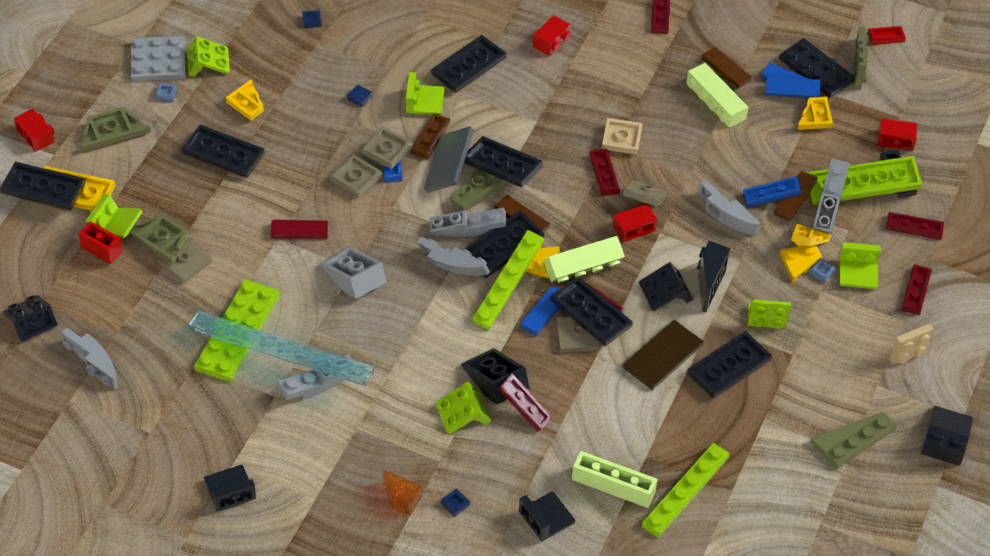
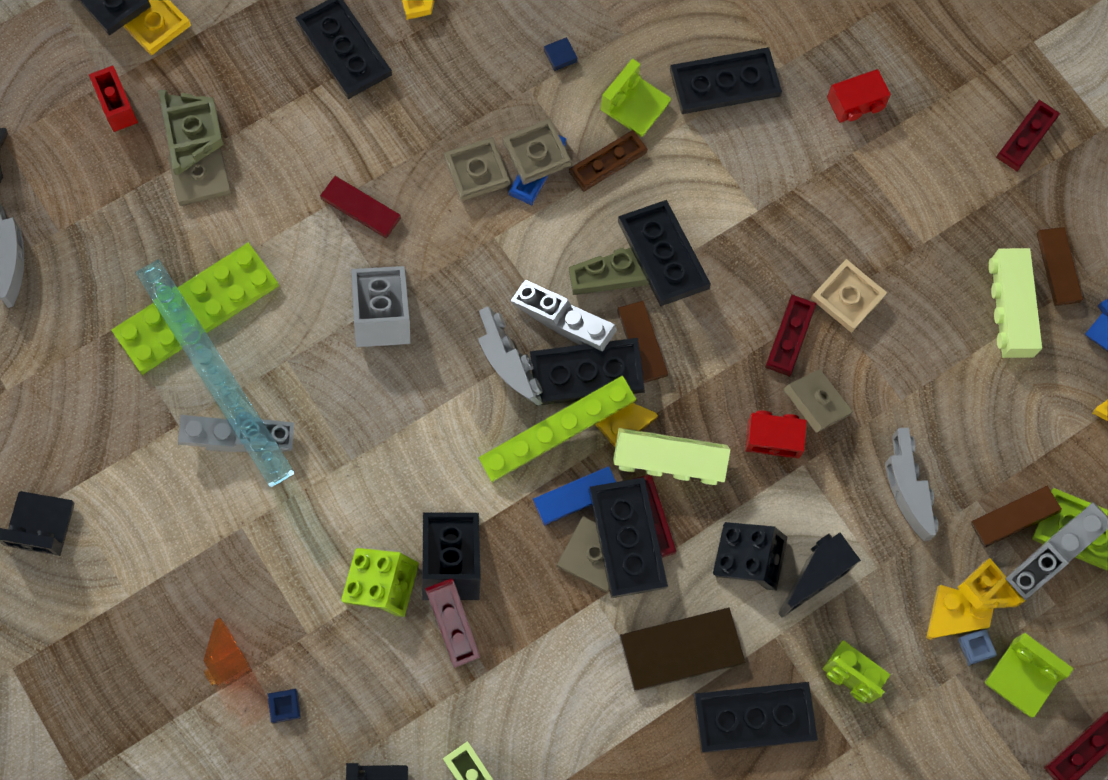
camera: 30 degrees right, 20 degrees up
(114, 219) = (149, 72): lime bracket -> none
(449, 159) = (602, 210): dark grey tile -> none
(772, 191) = (988, 492): blue tile -> none

